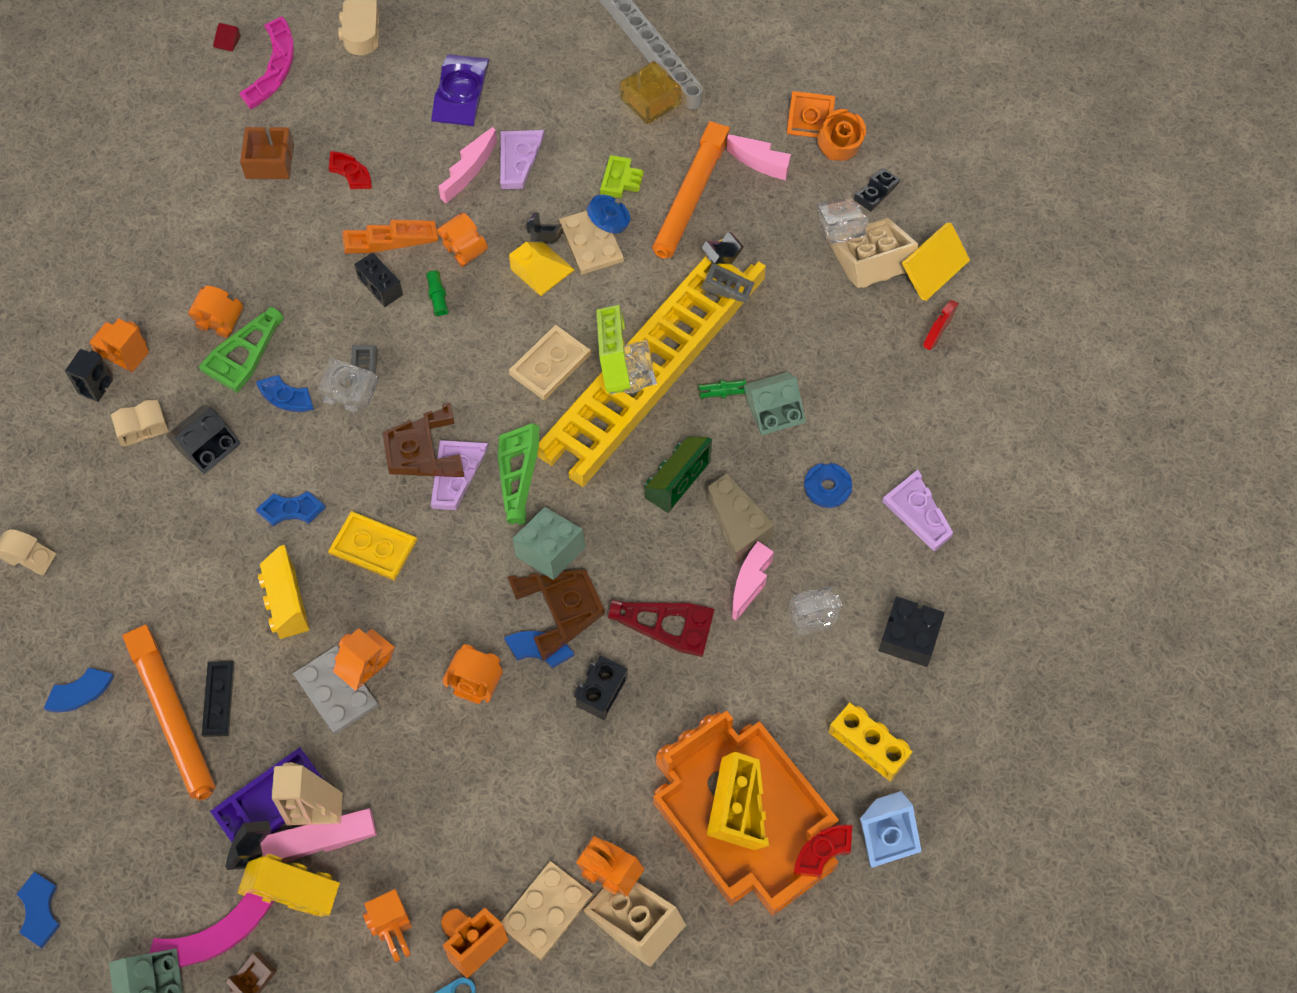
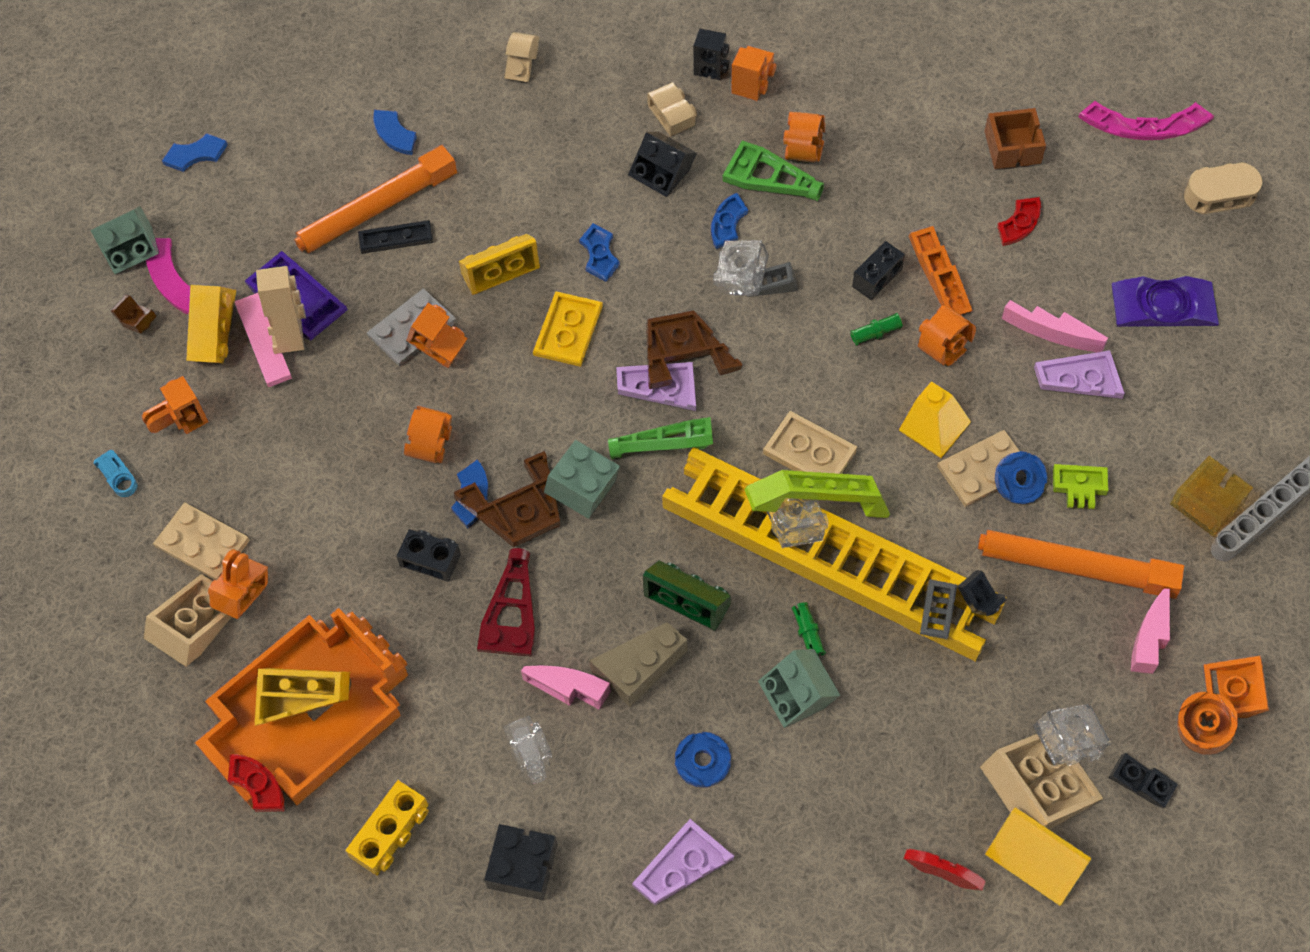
camera: 85 degrees right, 0 degrees up
(226, 37) = (1166, 73): dark red slope -> none
(247, 844) = (245, 282): black slope -> none
(472, 939) = (166, 479): orange brick -> none
(543, 232) = (980, 414): black bracket -> none
(890, 829) = (290, 854): light blue slope -> none

